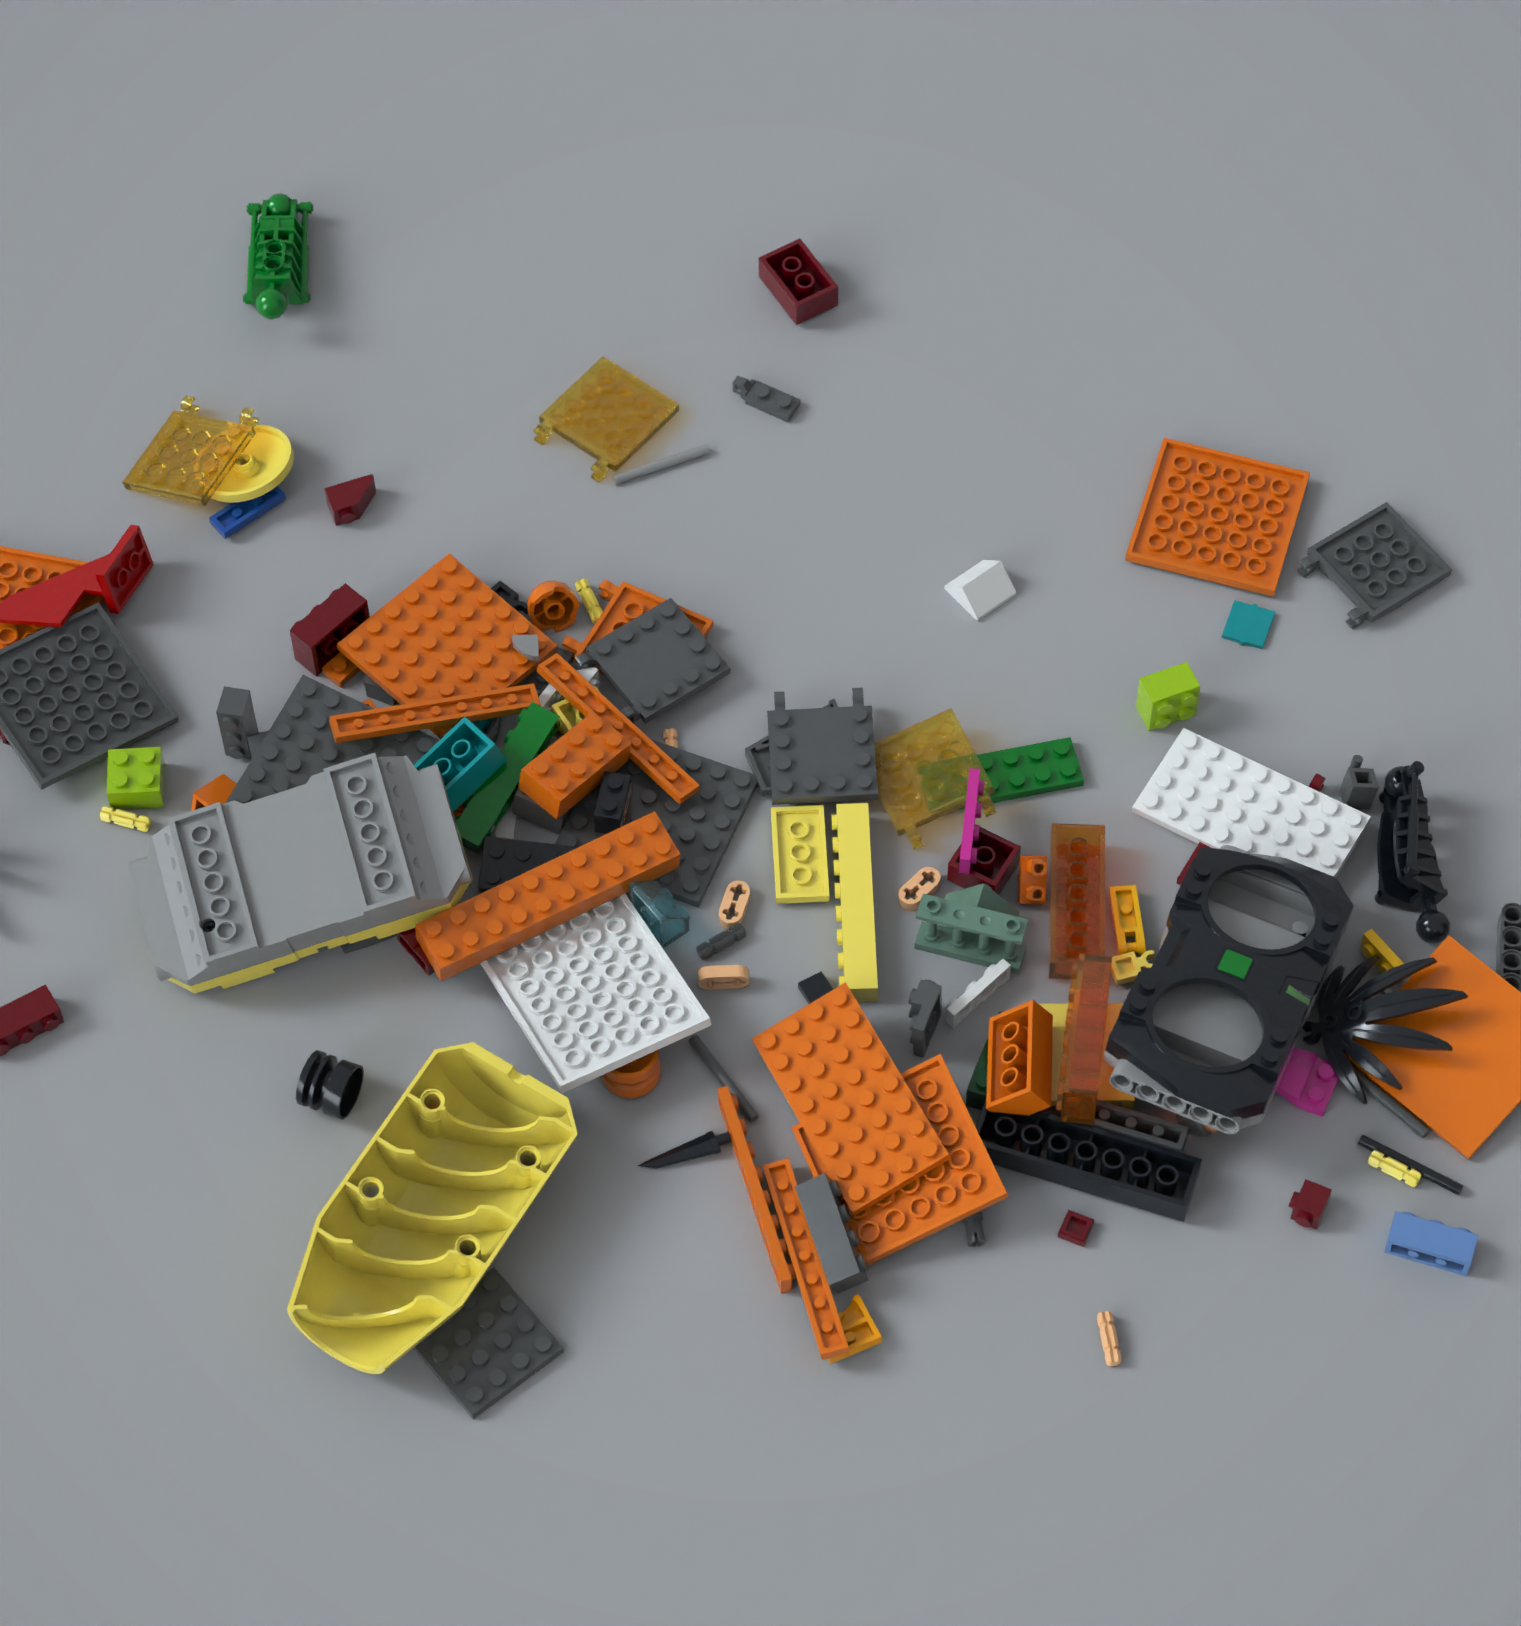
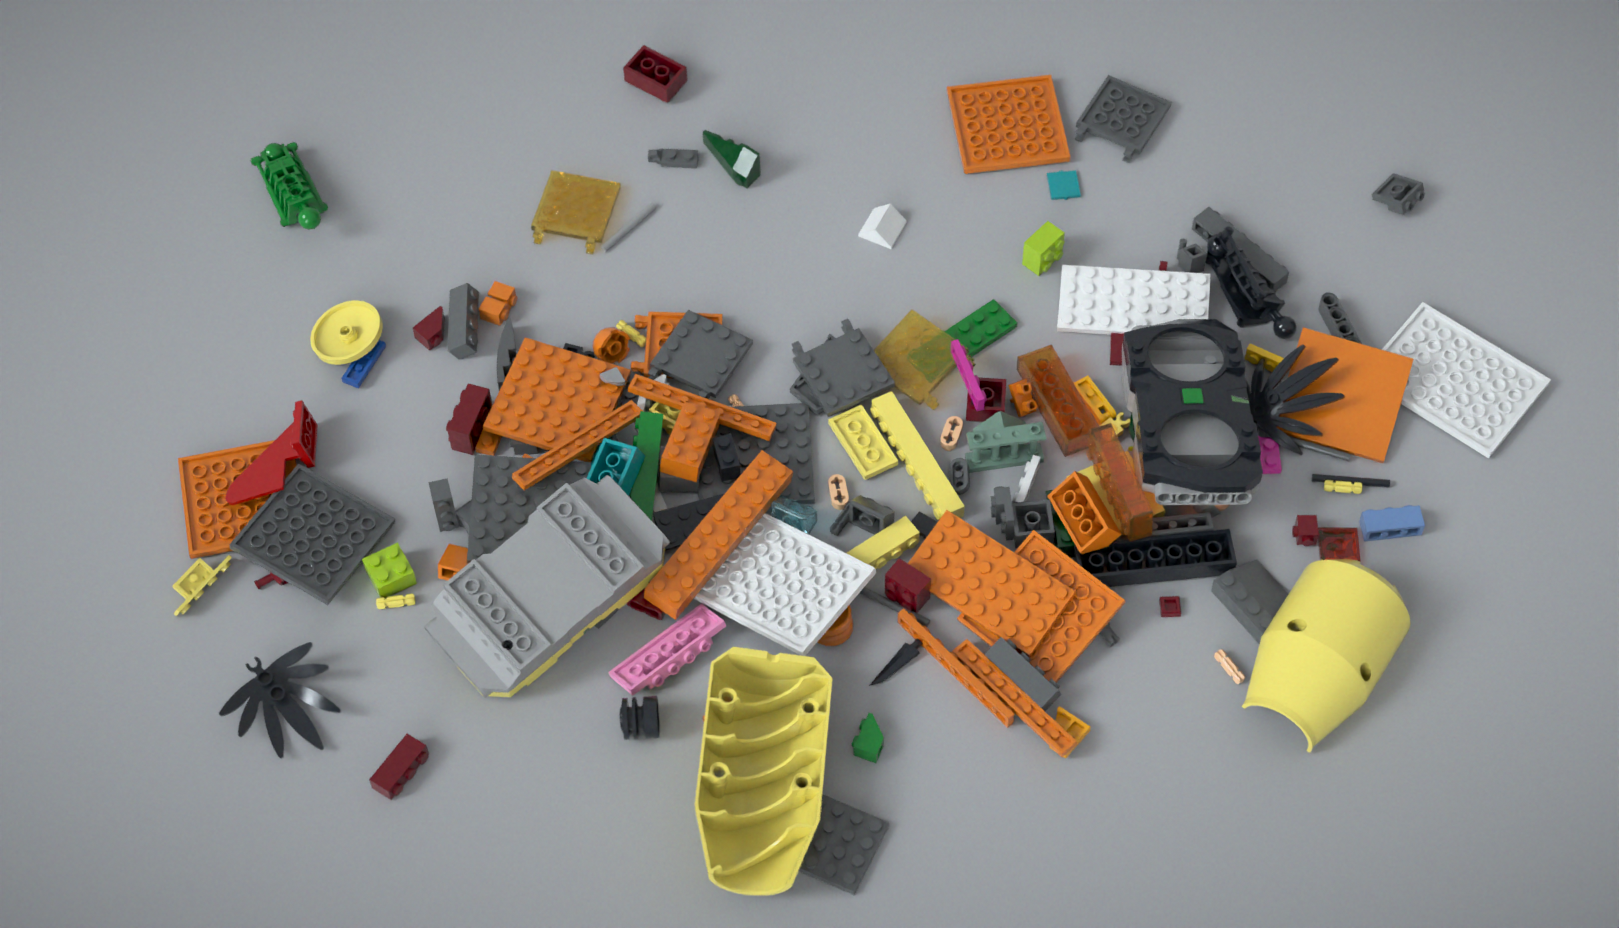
camera: 25 degrees left, 0 degrees up
(191, 455) = (305, 341): clear yellow plate -> none
(390, 504) = (463, 321): none -> dark grey brick
(412, 1017) = (668, 651): none -> bright pink plate
(424, 558) = (505, 353): none -> dark grey slope
(442, 505) = (497, 308): none -> orange piece
(595, 1234) = (870, 740): none -> green slope
(723, 977) = (854, 540): light nougat beam -> none
(747, 1060) = (907, 586): none -> dark red brick
(750, 997) = (887, 544): none -> light yellow brick
(755, 950) = (870, 515): none -> dark grey slope
(840, 430) = (738, 160): none -> dark green wedge
(894, 950) = (961, 477): none -> dark grey plate
(957, 1040) = (1030, 517): none -> dark grey brick
(1195, 1270) = (1250, 596): none -> dark grey slope
(1256, 1351) = (1328, 646): none -> light yellow cylinder
(1344, 1243) = (1338, 543): none -> clear red tile
(1449, 831) = (1210, 223): none -> dark grey brick

